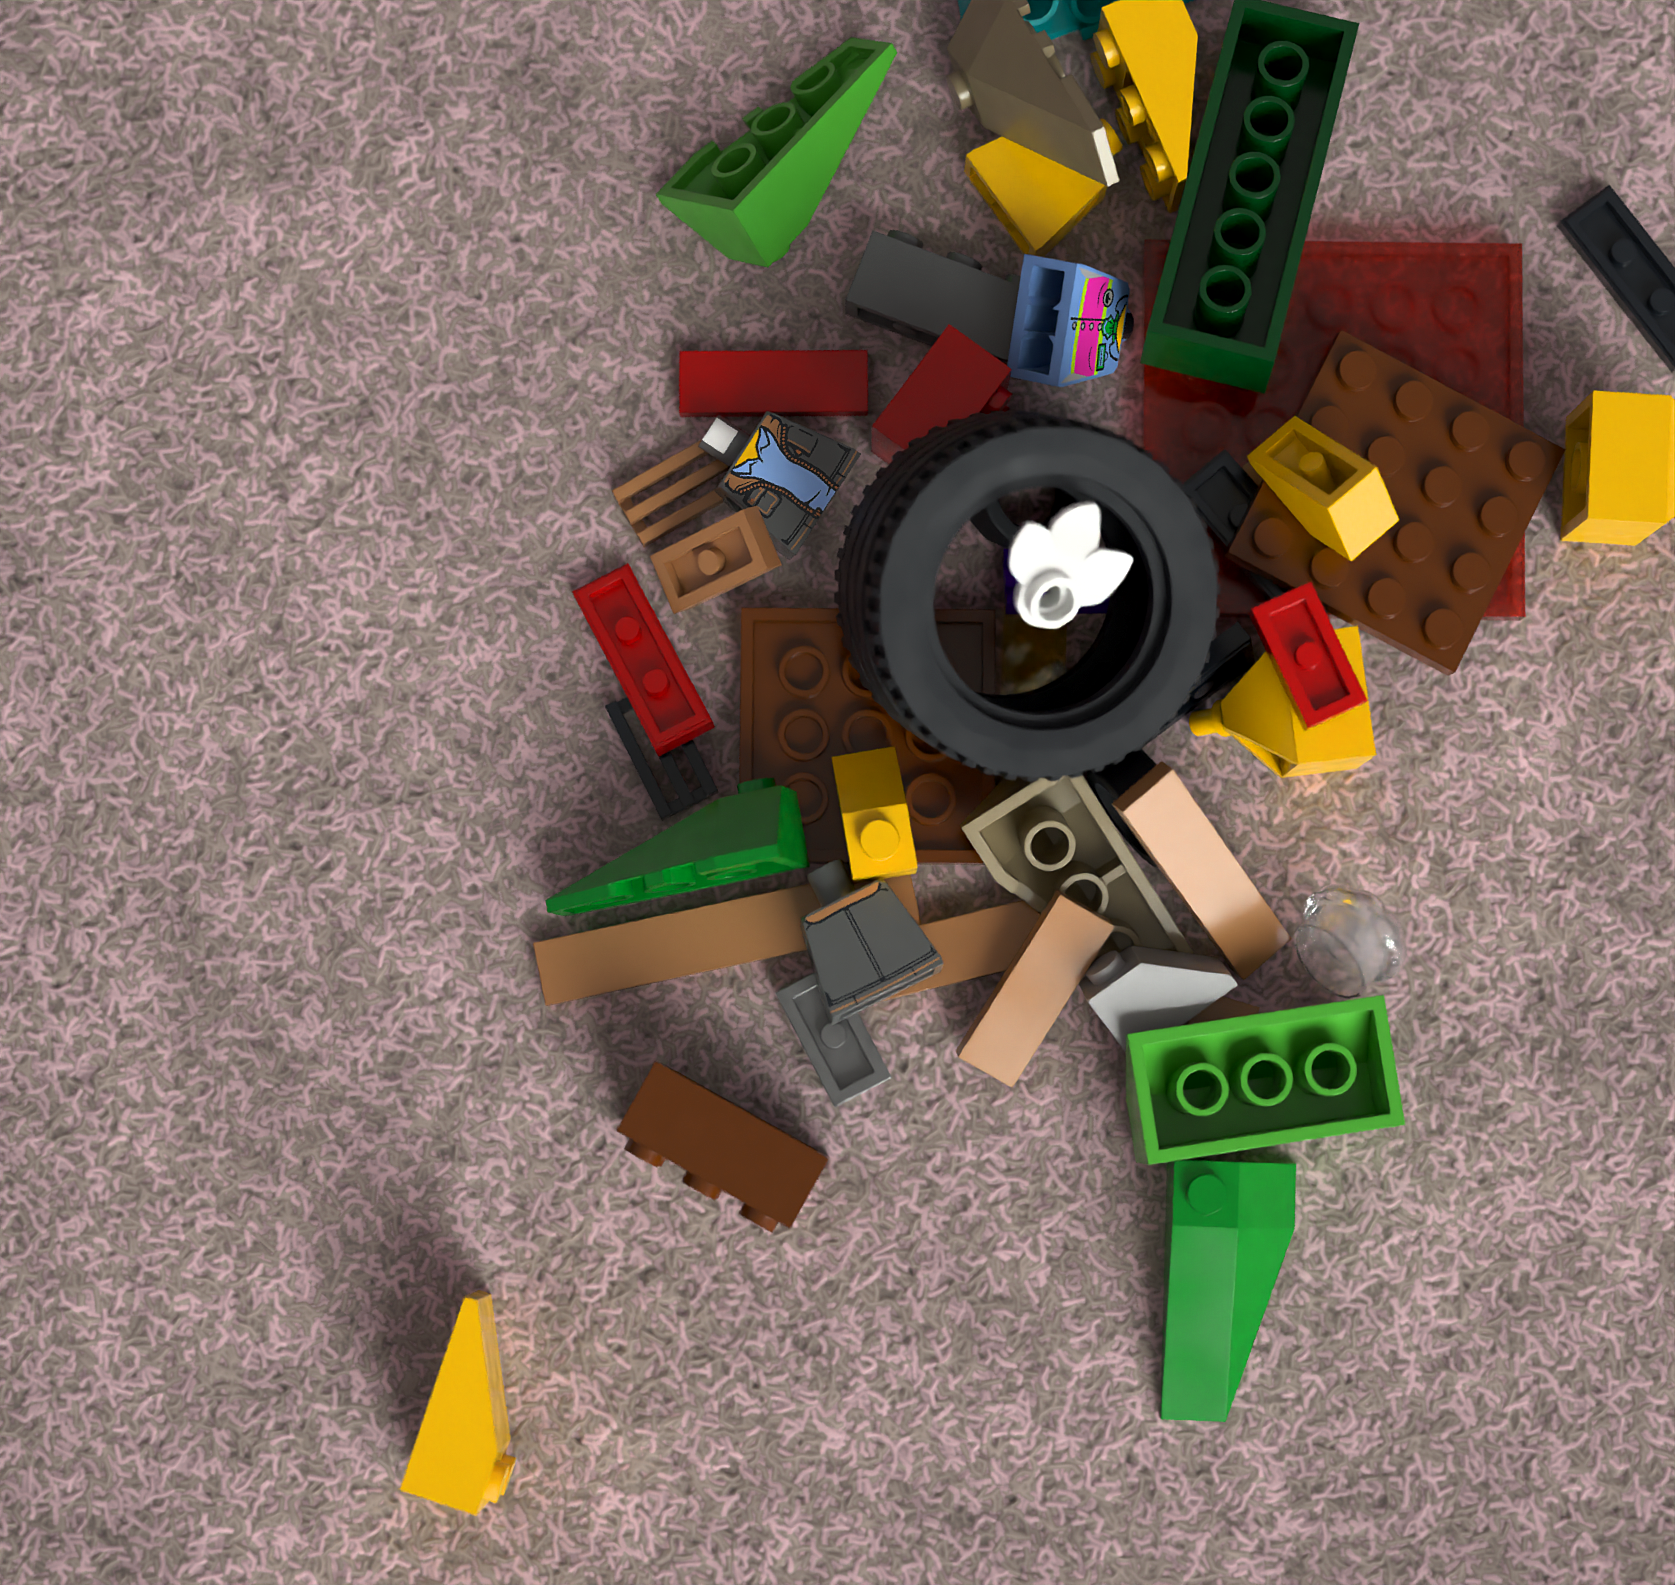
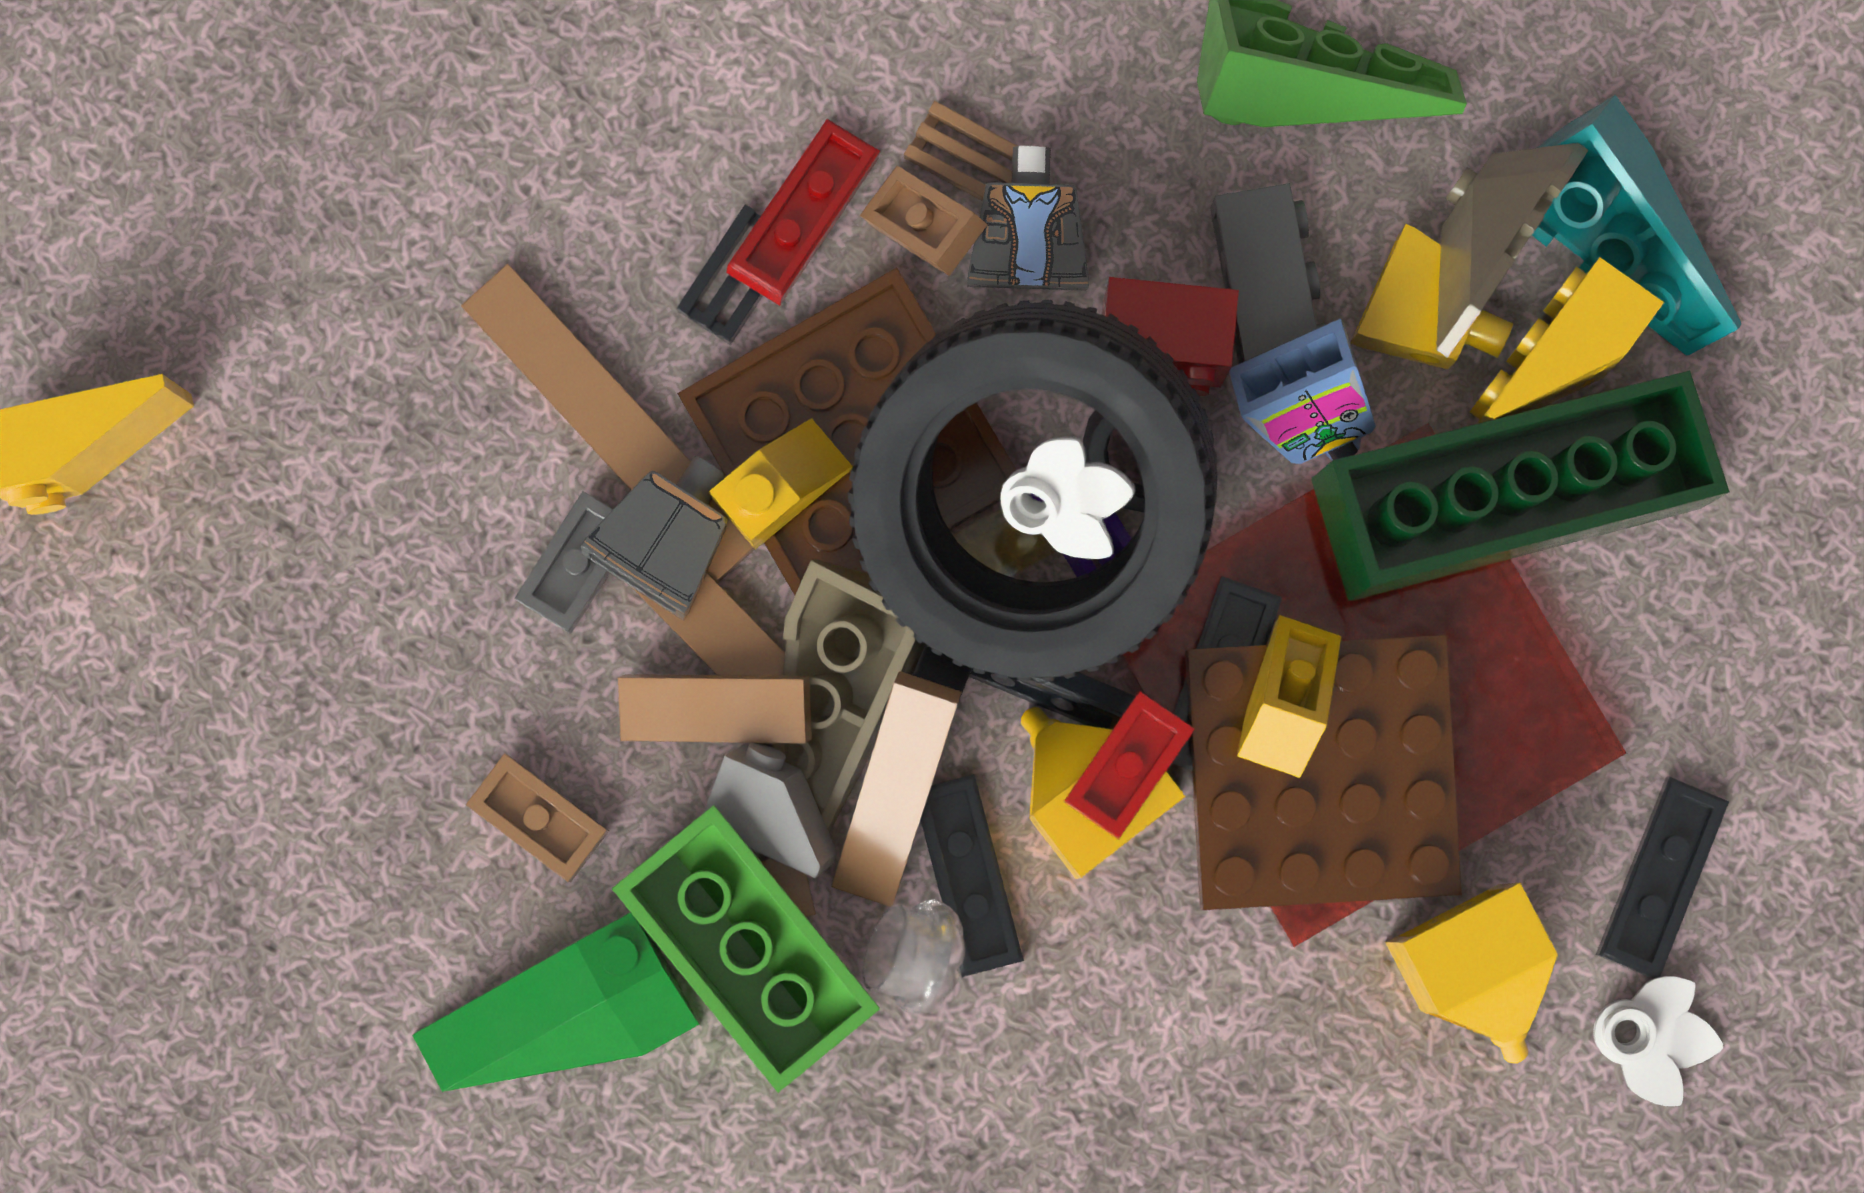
camera: 60 degrees right, 0 degrees up
(718, 845) = (675, 363): green wedge -> none
(721, 1147) = (421, 520): reddish brown brick -> none
(773, 382) = (1111, 182): red tile -> none
(1038, 1198) = (537, 817): none -> medium nougat plate
(1304, 855) = (970, 874): none -> black tile

